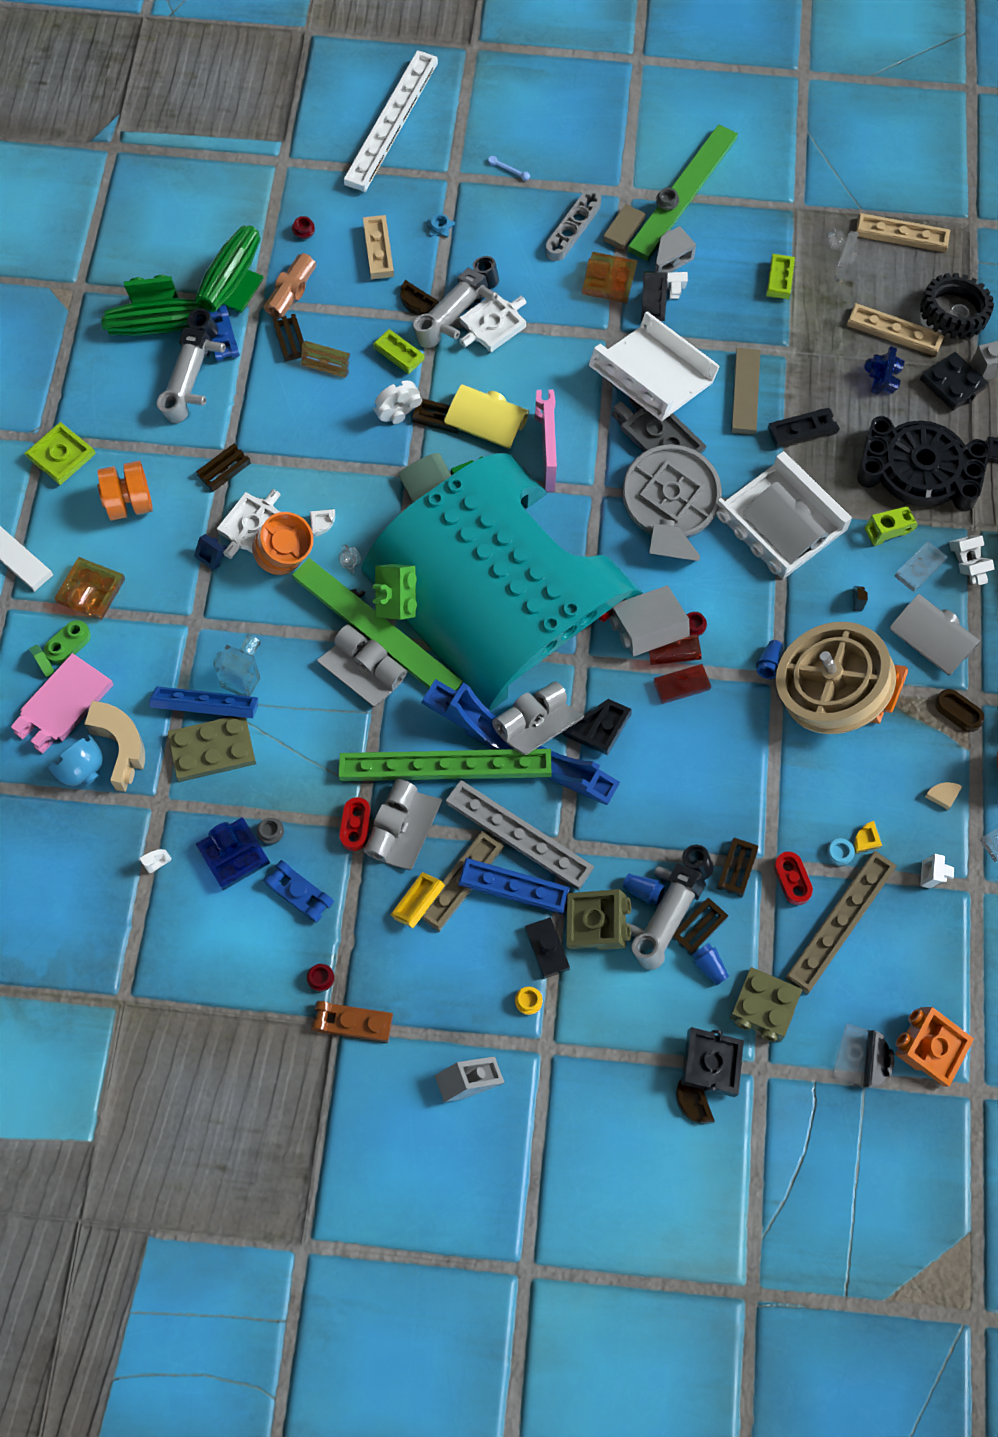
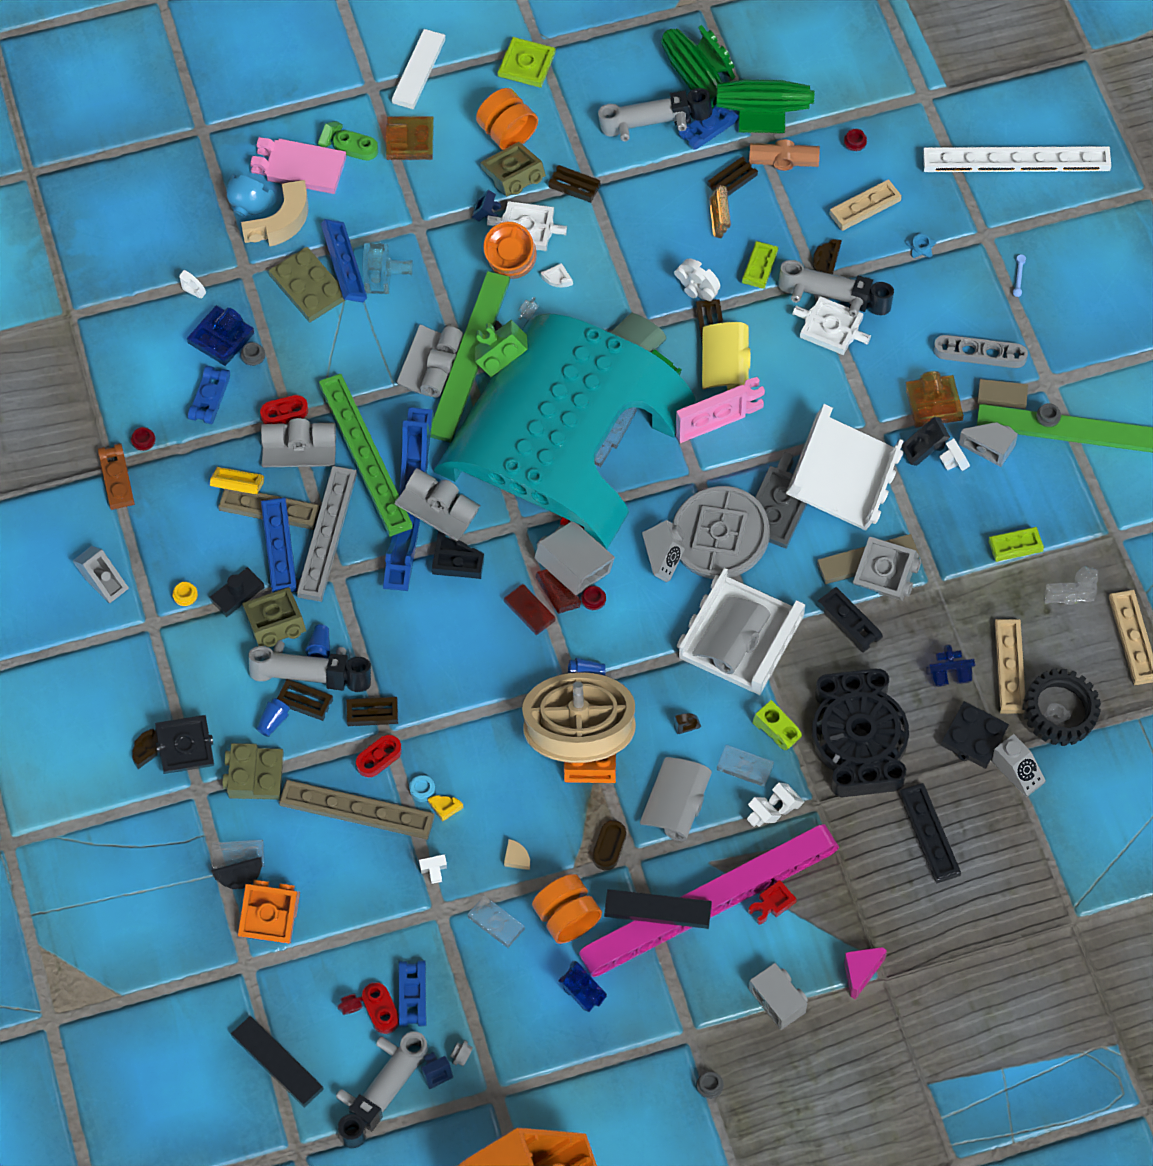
camera: 70 degrees right, 5 degrees down
(181, 509) = (514, 169): none -> olive plate
(771, 375) = (887, 568): none -> light grey plate

